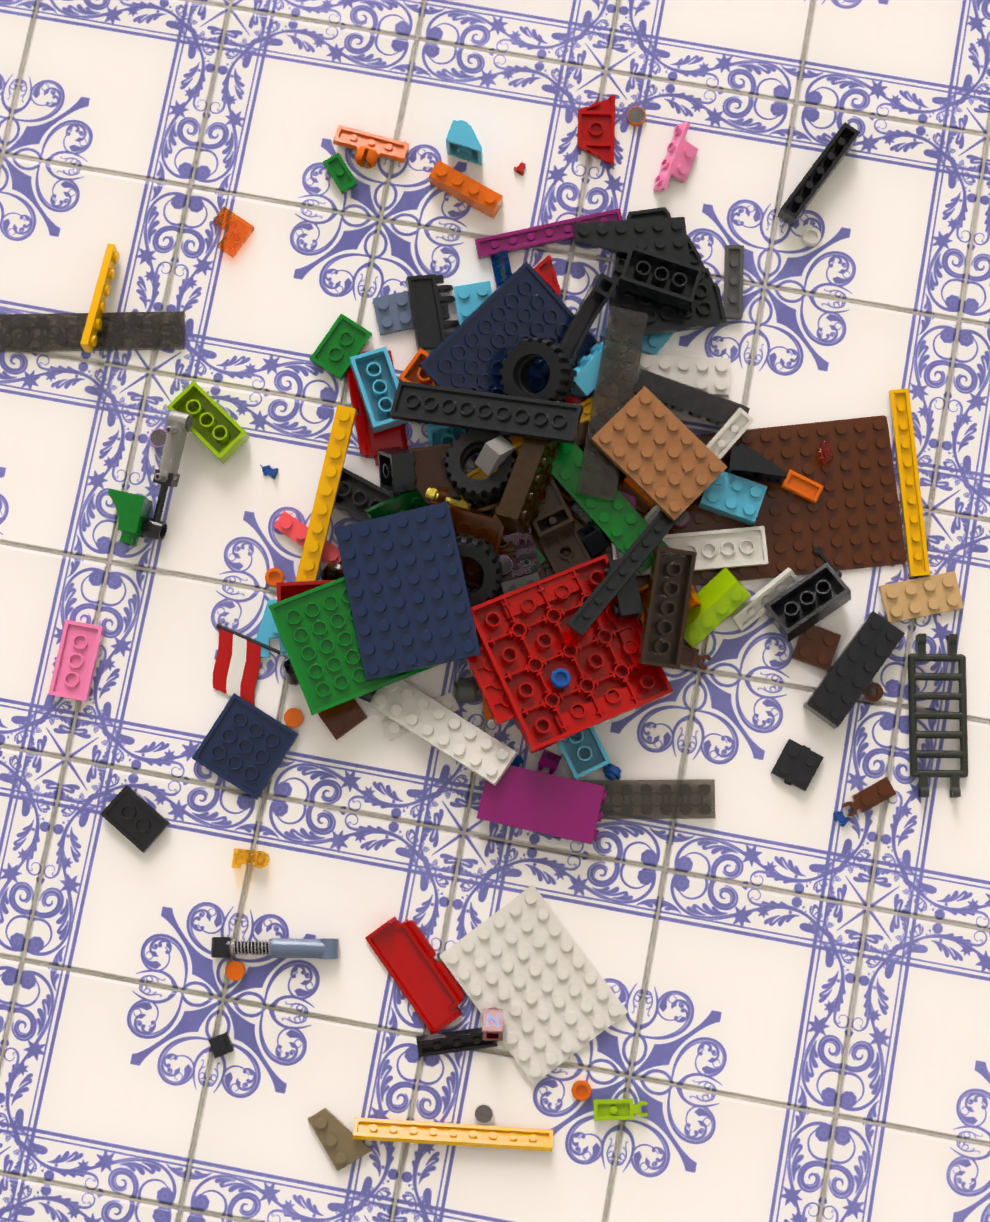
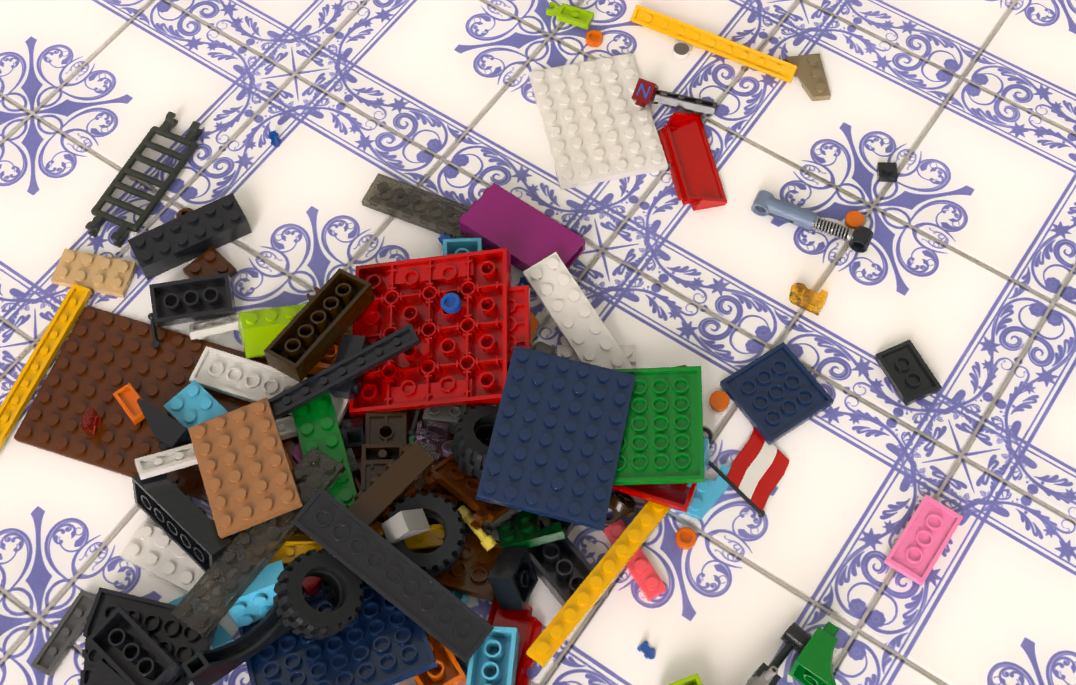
camera: 160 degrees left, 20 degrees down
(797, 765) = (285, 188): black plate -> none
(871, 796) = (241, 144): reddish brown plate -> none

